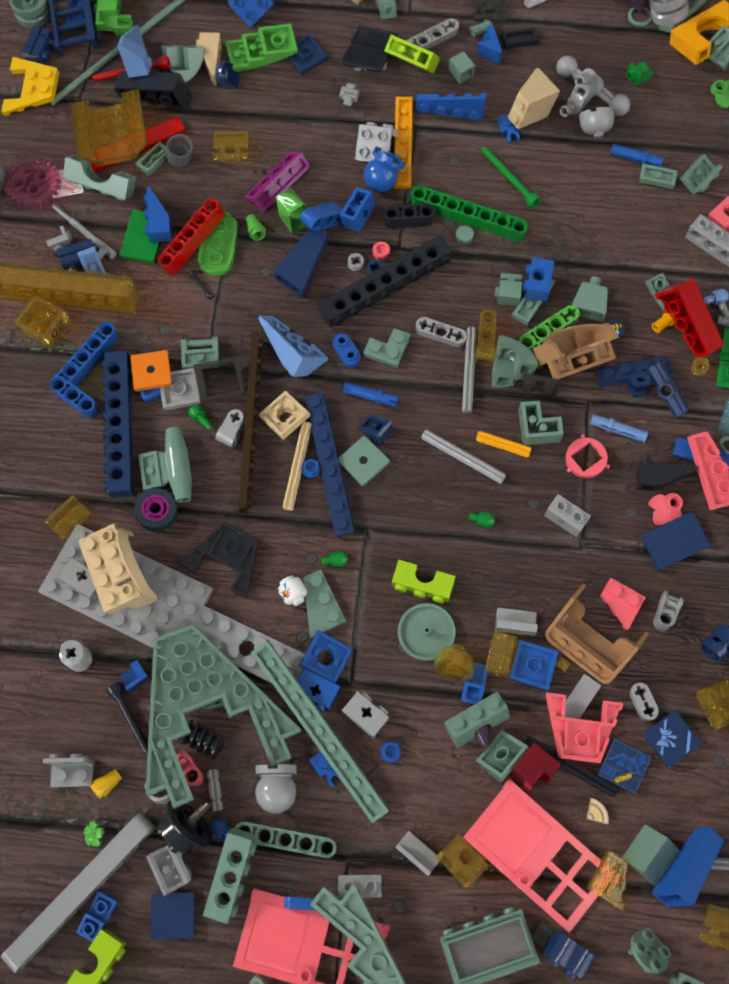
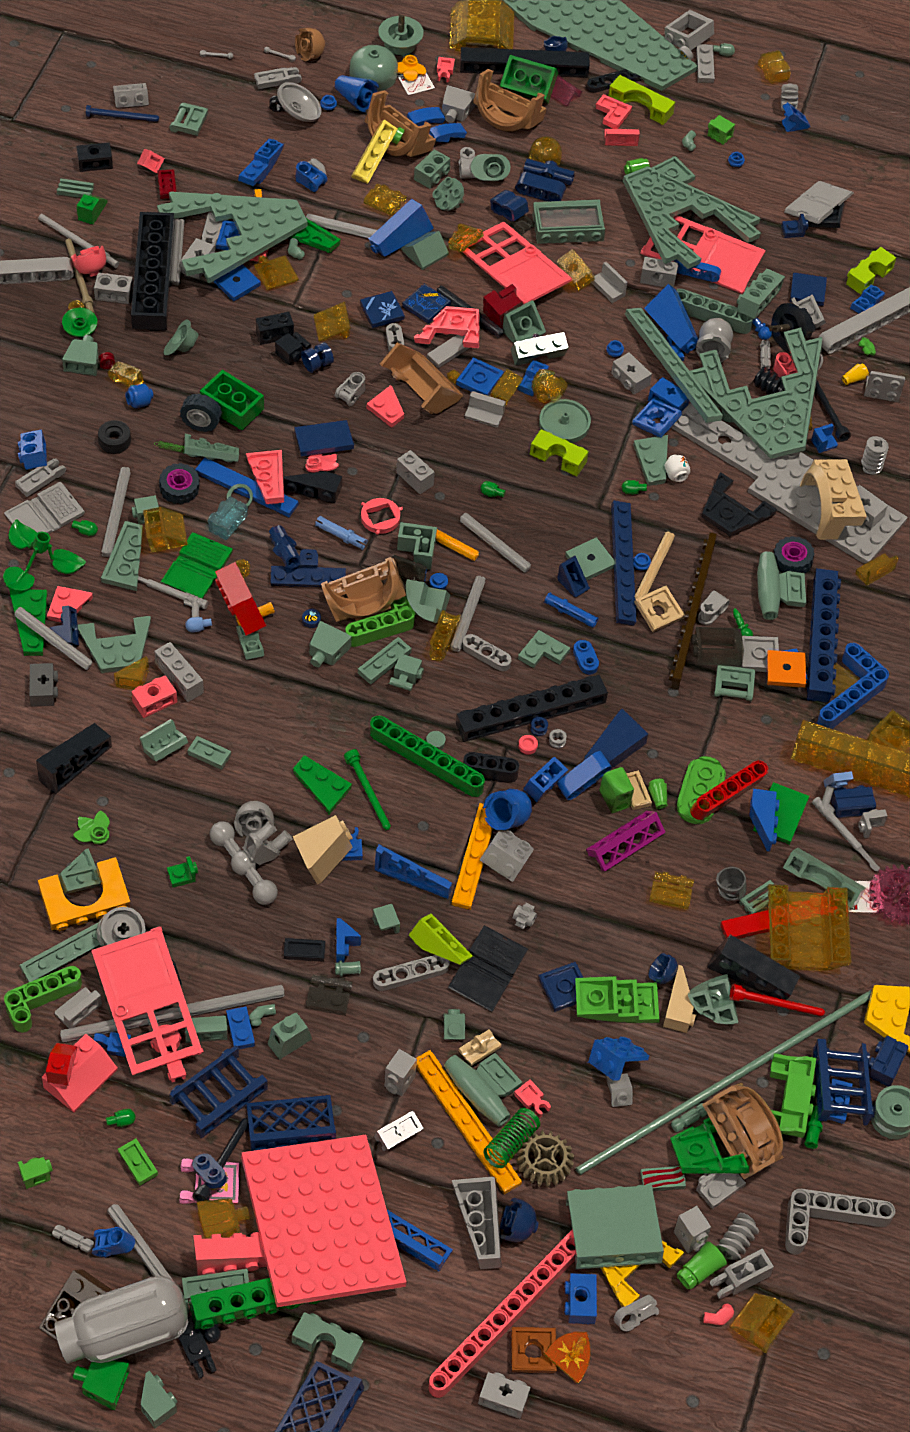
camera: 175 degrees left, 15 degrees down
(134, 53) = (768, 989): medium blue wedge -> none
(193, 273) = (717, 739): black hinge -> none
(276, 230) = (640, 796): none -> tan tile
(291, 349) = (640, 665): medium blue wedge -> none
(330, 805) = (673, 319): none -> blue slope
(507, 397) = (438, 581): none -> blue plate
(535, 288) = (377, 655): blue brick -> none
(552, 175) = (323, 783): none -> green wing
(597, 812) = (458, 281): tan tile -> none
(635, 155) = (216, 775): blue pin -> none

